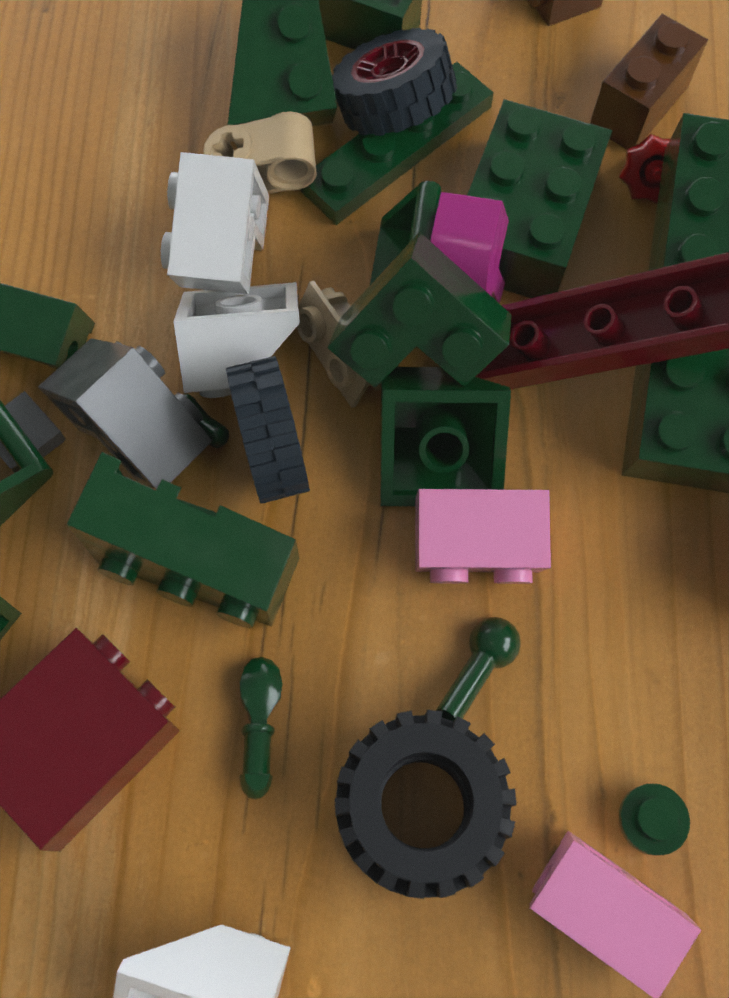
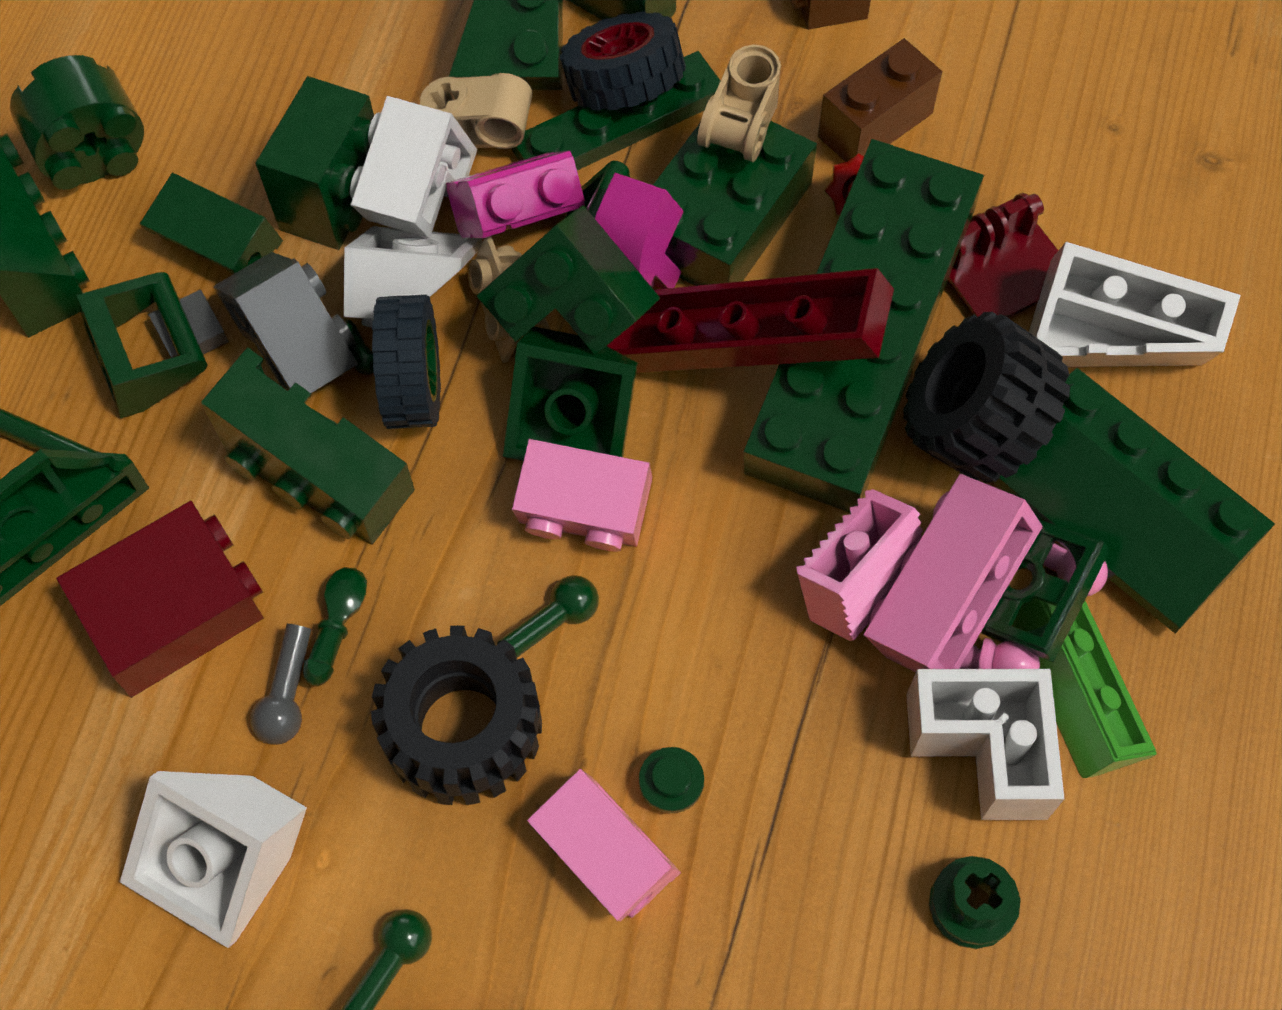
camera: 15 degrees right, 5 degrees down
(117, 234) = (313, 161): none -> dark green brick
(223, 838) = (277, 716): none -> dark grey bar
(326, 234) = (515, 194): none -> dark pink brick
(543, 98) = (743, 102): none -> tan piece

